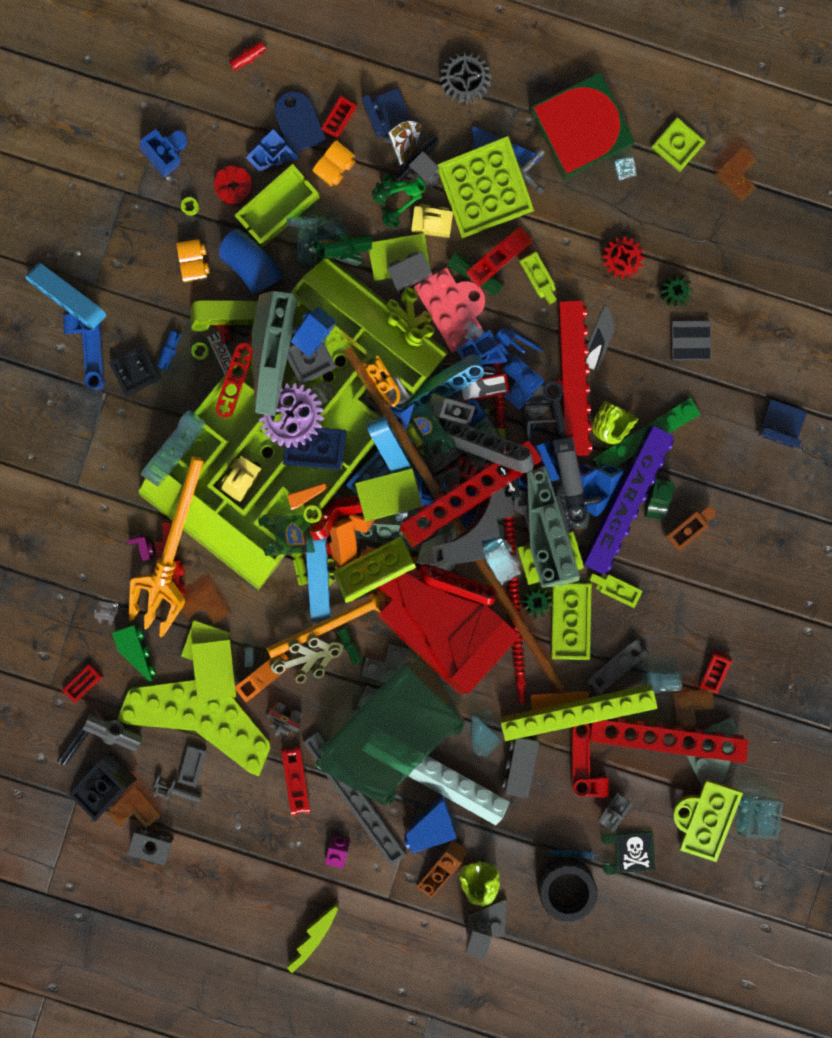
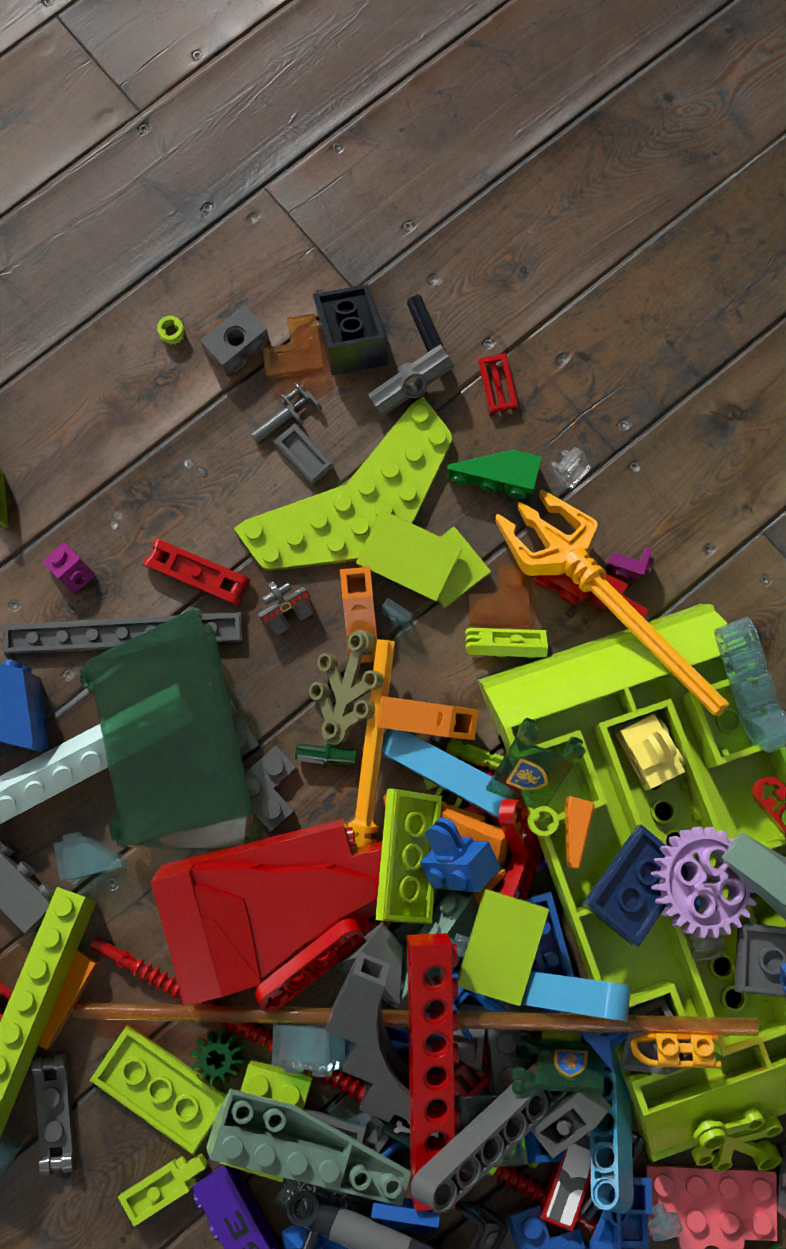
camera: 125 degrees right, 10 degrees down
(172, 890) = (173, 339): none -> lime bush
(228, 587) = (506, 642): none -> lime hinge
(296, 604) = (427, 718): none -> orange slope
(360, 544) = (457, 860): none -> blue brick

